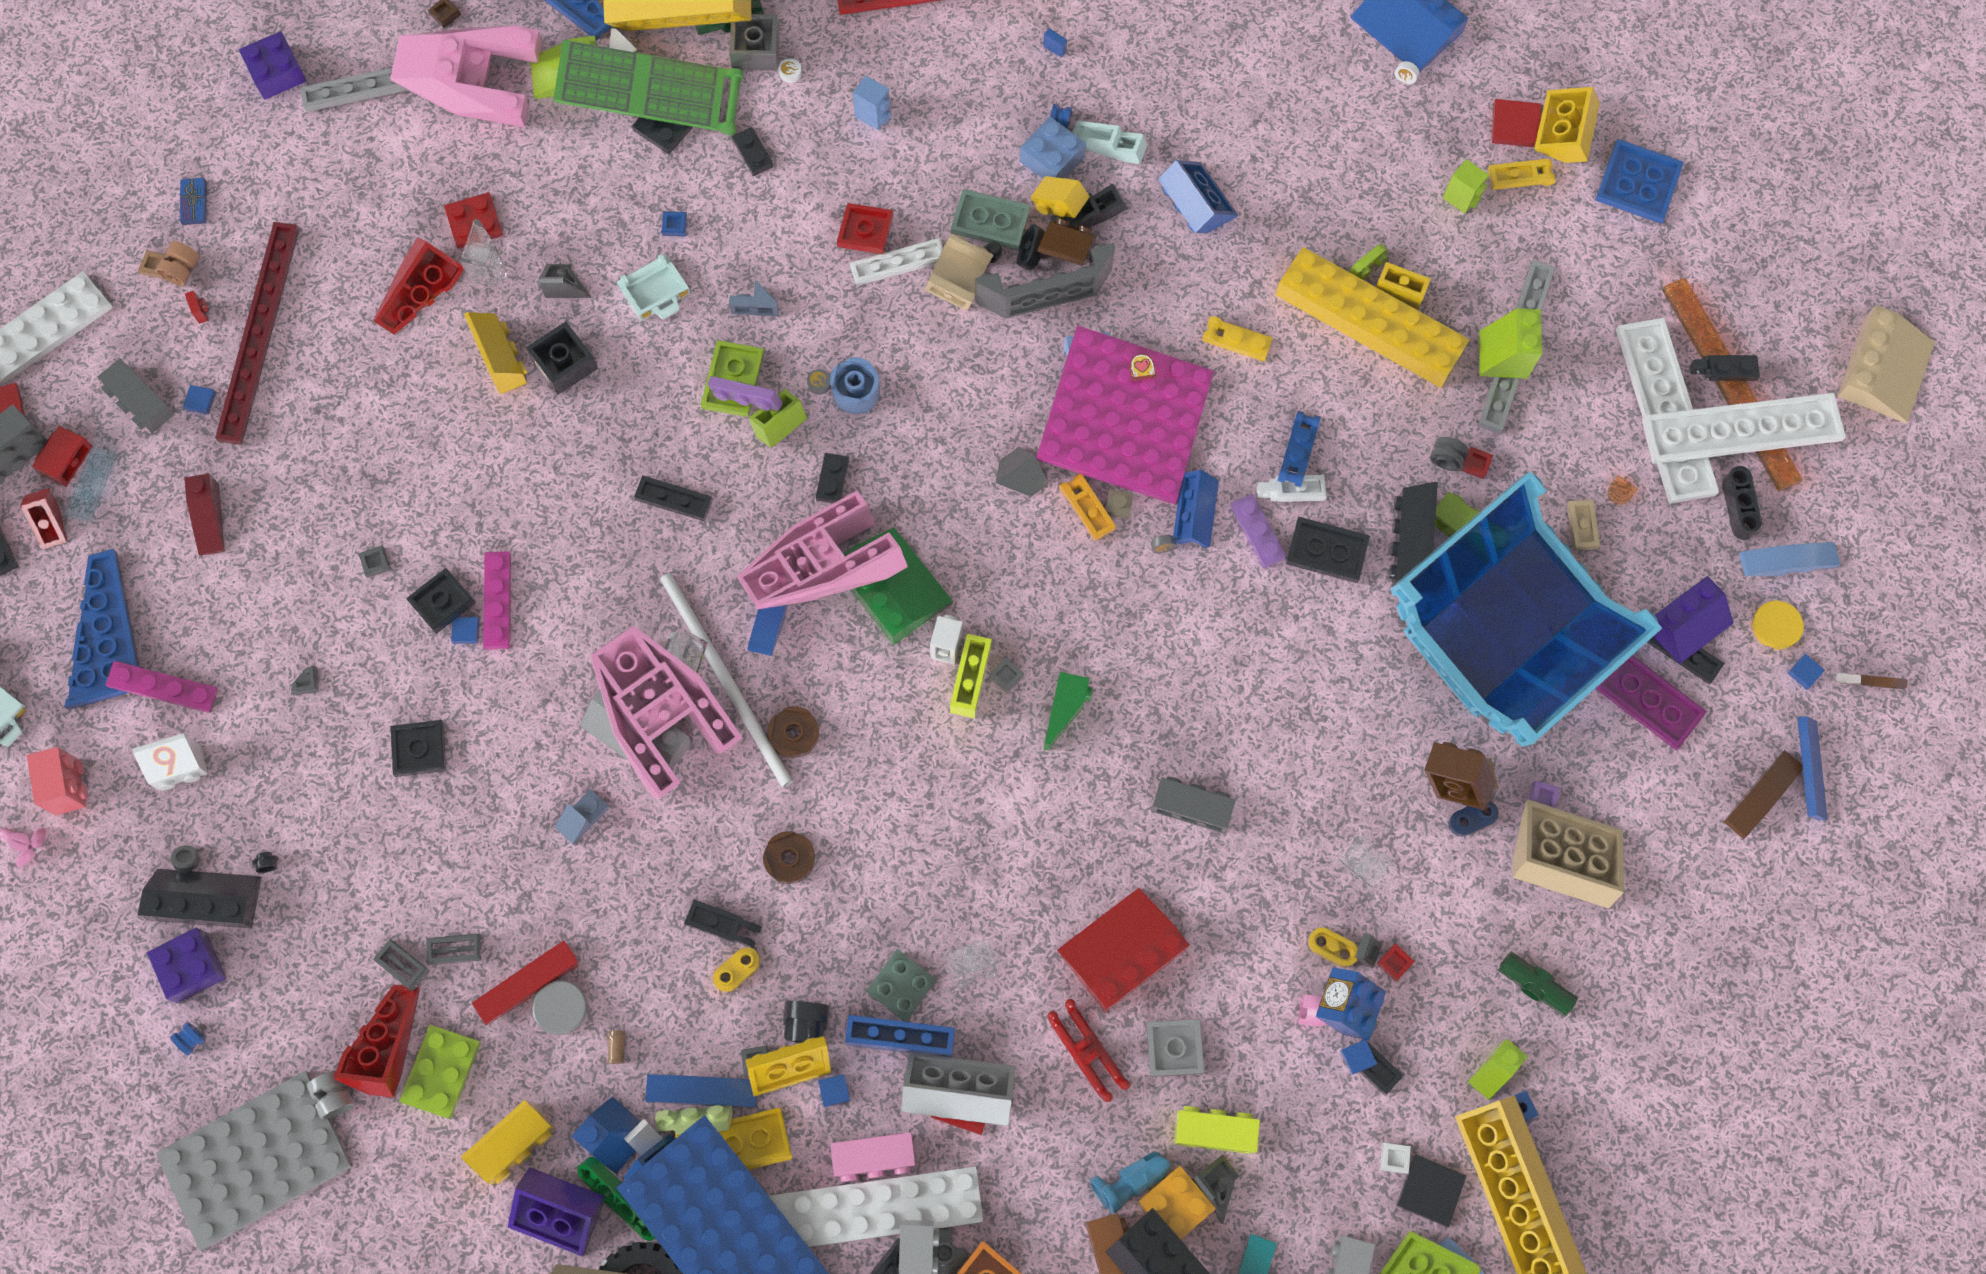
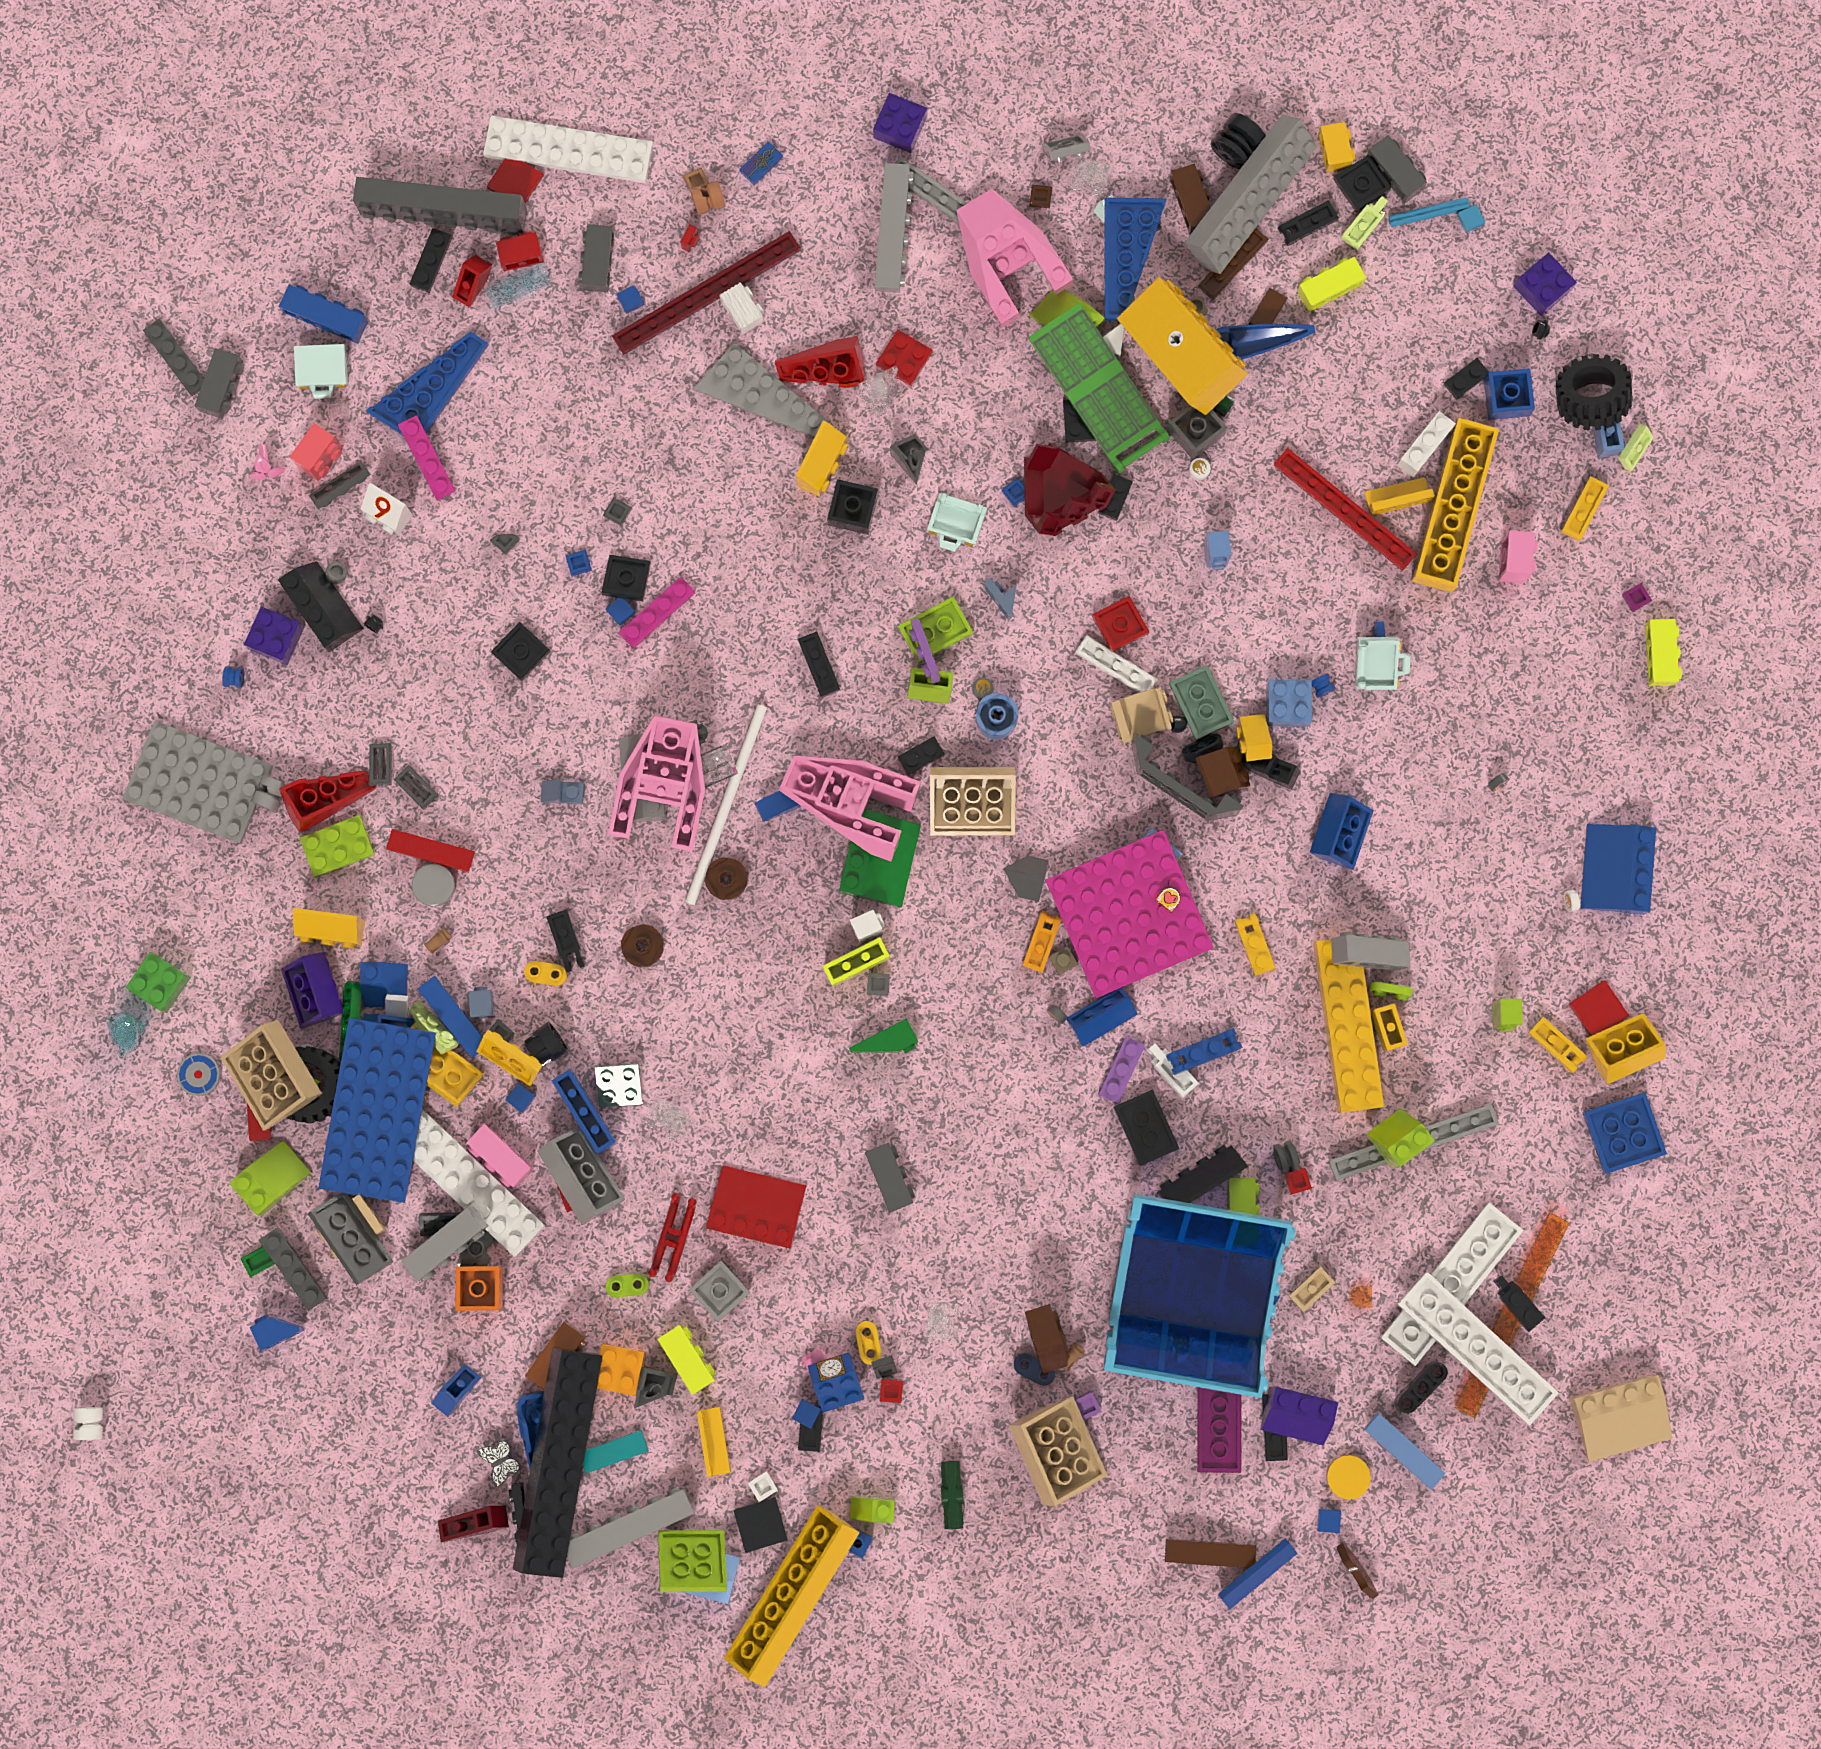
camera: 55 degrees right, 10 degrees up
(109, 787) = (339, 485): none -> dark grey plate
(205, 513) = (558, 377): dark red slope -> none
(300, 312) = (742, 308): none -> white brick
(354, 138) = (892, 227): none -> light grey brick
(379, 361) = (752, 388): none -> light grey wing
(387, 632) = (578, 563): none -> blue tile
(707, 183) = (1061, 489): none -> dark red panel
(712, 1052) = (481, 1003): none -> sand blue brick
(911, 465) = (972, 801): none -> tan slope
(1080, 58) = (1378, 663): none -> light aqua piece
(1098, 1133) = (627, 1285): none -> lime plate
(1111, 141) = (1333, 734): light aqua slope -> none
(1132, 1182) = (615, 1331): dark azure piece -> none
(1259, 51) = (1498, 782): none -> dark grey tile
(1316, 1170) = (713, 1441): none -> yellow panel
(1325, 245) = (1370, 952): none -> light grey brick

